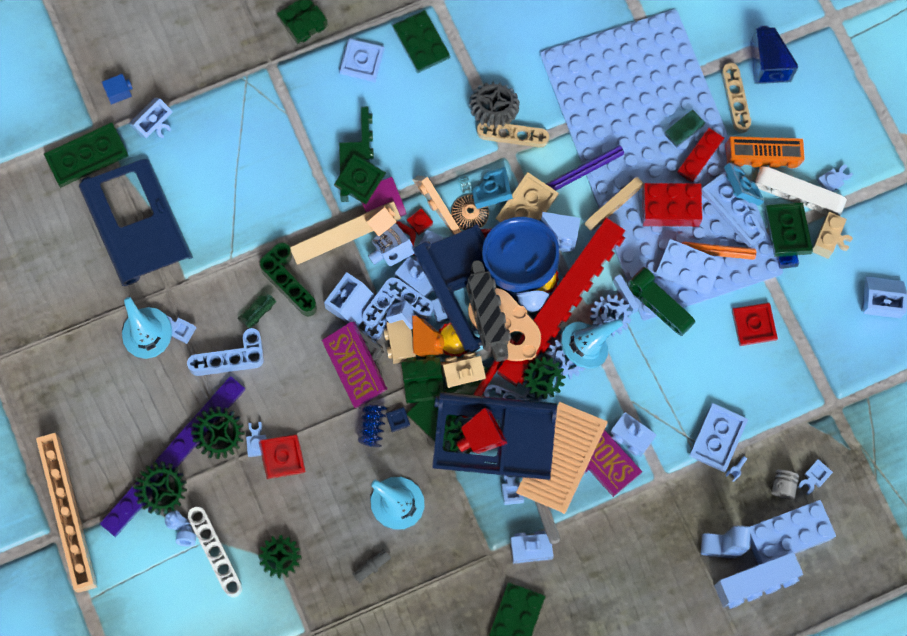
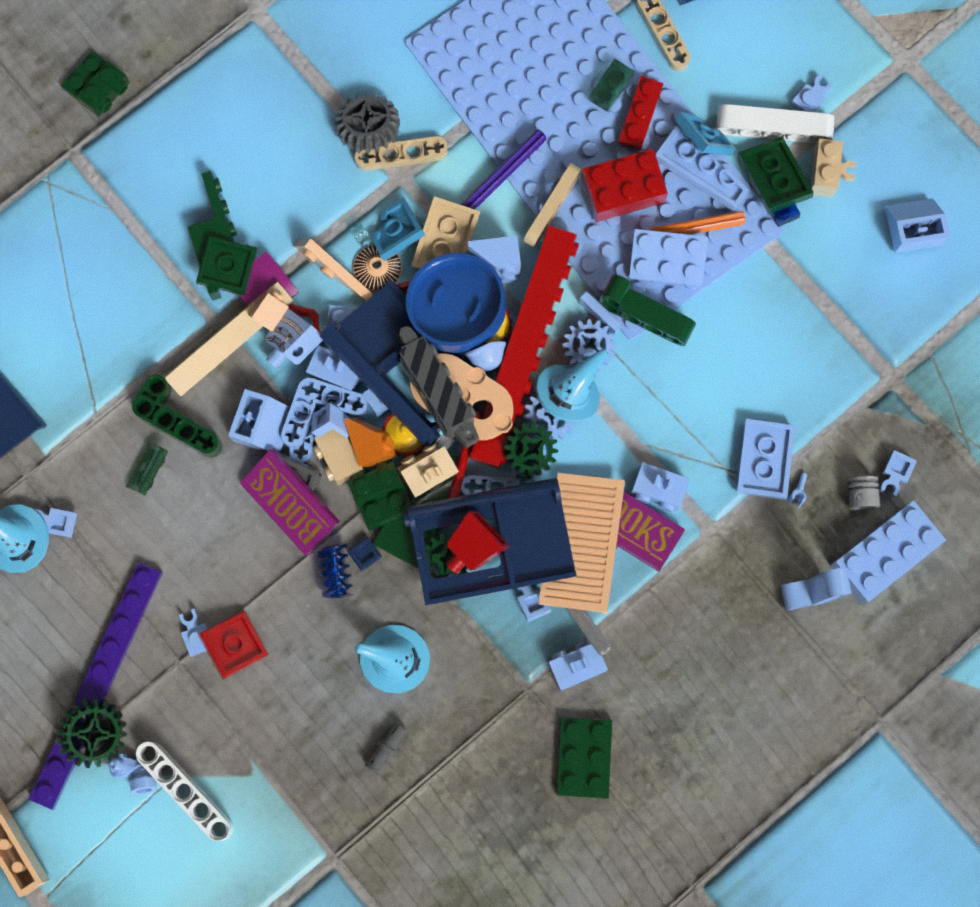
camera: 15 degrees left, 5 degrees up
(223, 426) = (147, 628): dark green gear -> none
(226, 356) = (125, 539): light blue beam -> none
(289, 557) = (265, 760): dark green gear -> none
(362, 60) = (185, 114): light blue tile -> none
(420, 221) = (318, 297): red plate -> none
(421, 41) = (253, 69): dark green plate -> none
(754, 324) = (767, 304): red tile -> none
(759, 579) = (867, 623): light blue brick -> none
(765, 151) = (718, 86): orange brick -> none

